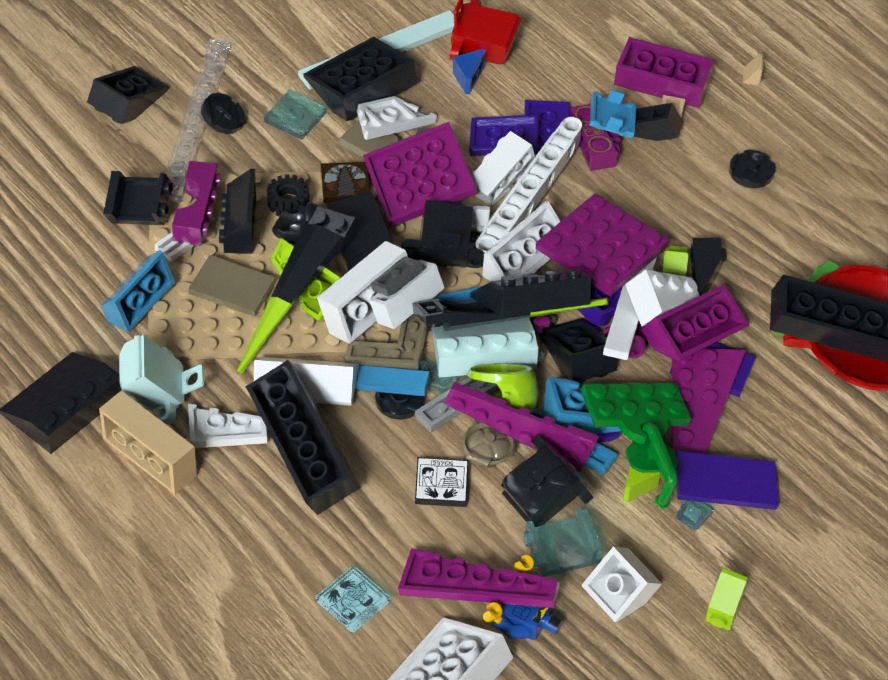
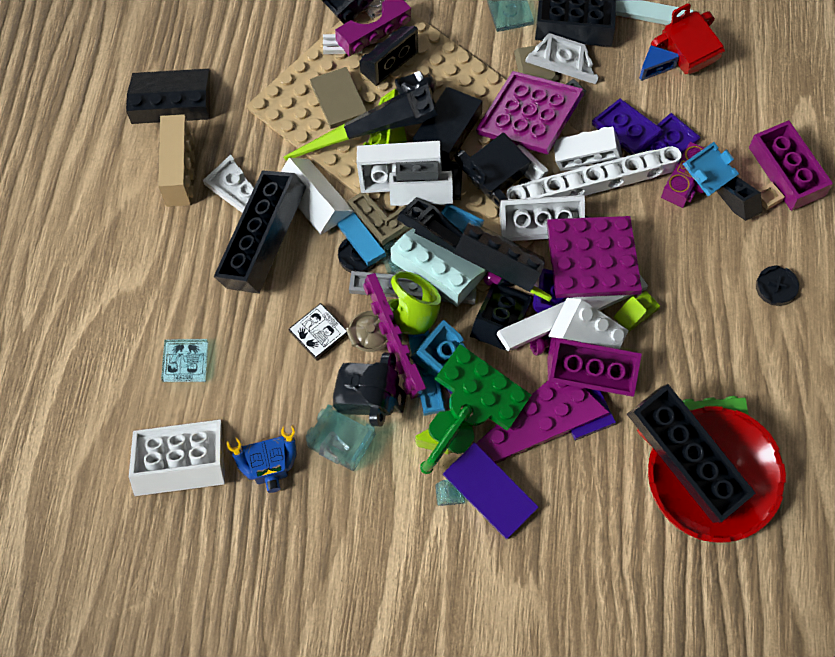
camera: 50 degrees right, 15 degrees up
(139, 292) = (276, 59): dark azure slope -> none
(155, 377) = (223, 121): light aqua piece -> none
(287, 186) = (436, 54): black tyre -> none
(344, 180) = (482, 81): tile -> none
(441, 578) = (247, 407): magenta wing -> none
(621, 583) = (344, 497): white slope -> none
(706, 261) = (655, 329): black slope -> none
(726, 599) = (388, 572): slope -> none

